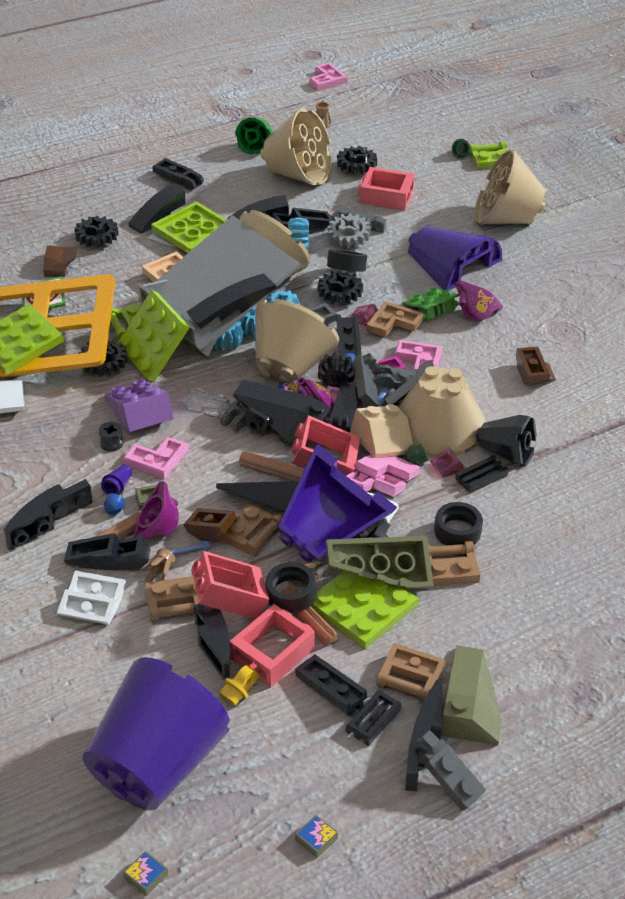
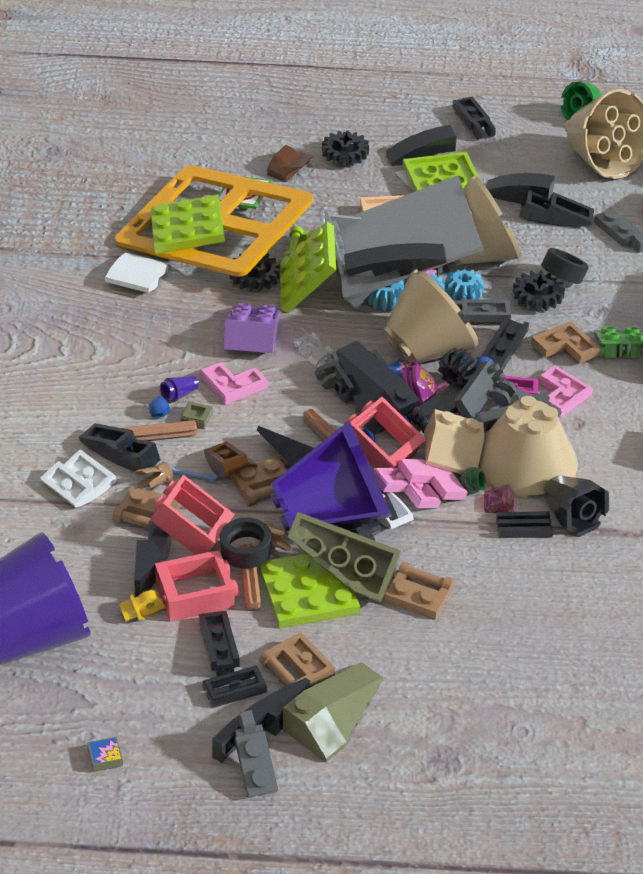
camera: 30 degrees right, 0 degrees up
(39, 513) = (86, 388): black slope -> none
(111, 436) = (204, 346): black wheel -> none
(158, 514) = (186, 433): magenta hat -> none
(300, 230) = (537, 221): medium azure gear -> none
(349, 230) = (597, 236): light grey gear -> none
(365, 313) = (542, 325): clear pink slope -> none
(458, 511) = (456, 545): black tyre -> none

